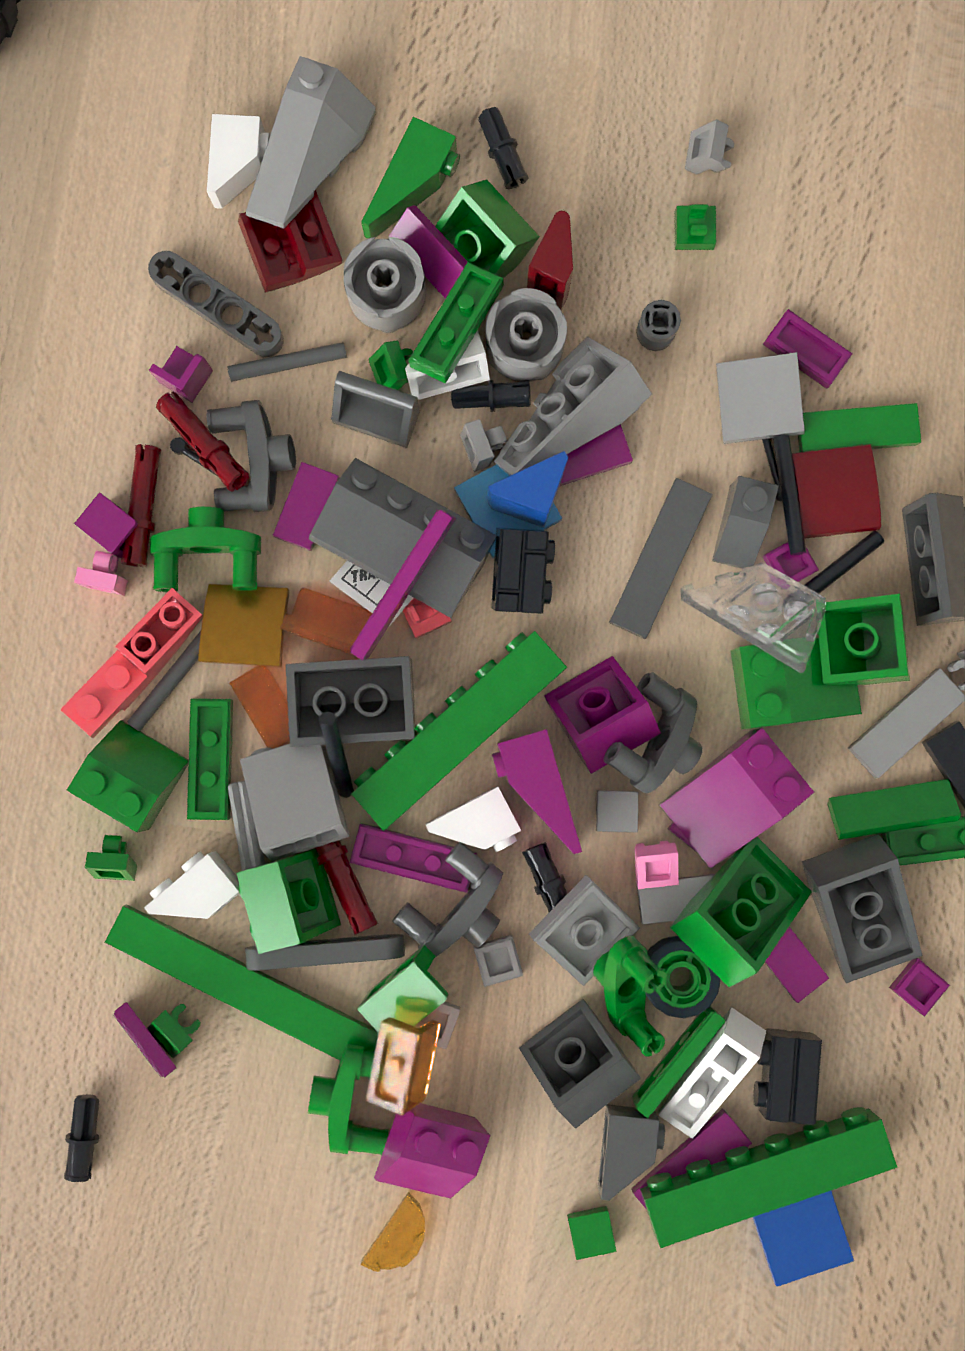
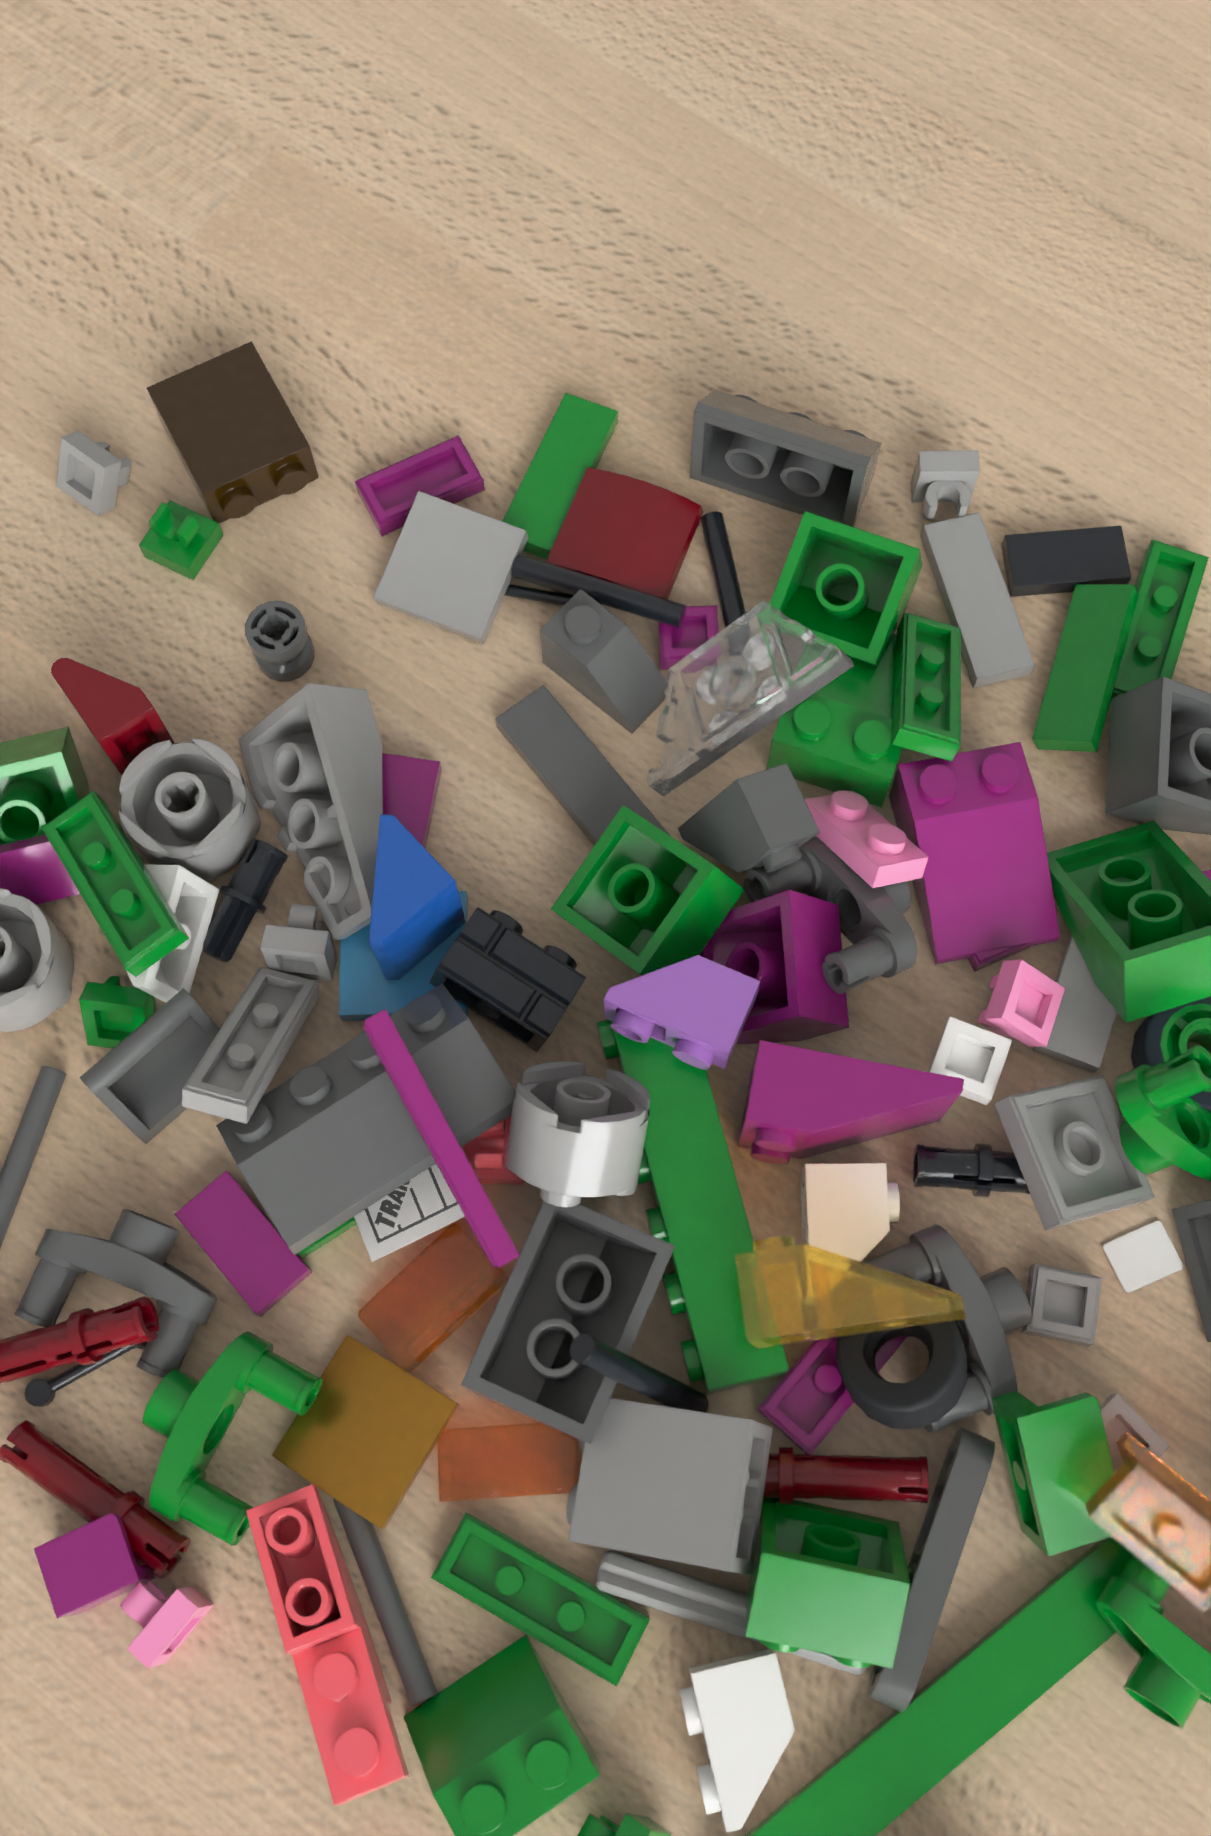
camera: 60 degrees left, 15 degrees down
(408, 451) = (251, 1045): none -> light grey tile
(418, 861) = (908, 1403): none -> black tyre
(426, 830) = (815, 1295): none -> clear yellow slope
(449, 654) = (577, 1132): none -> light grey brick
(548, 993) = (1143, 1256): none -> white sticker
(550, 680) = (688, 1006): none -> medium lavender slope
(606, 623) = (646, 895): none -> green slope
(606, 849) = (971, 1055): none -> white tile
(617, 811) = (915, 1023): light grey tile -> none
(680, 663) = (754, 822): none -> dark grey slope
(708, 728) = (866, 839): none -> bright pink plate
(779, 217) = (234, 433): none -> dark brown brick
(824, 721) = (927, 687): none -> green tile

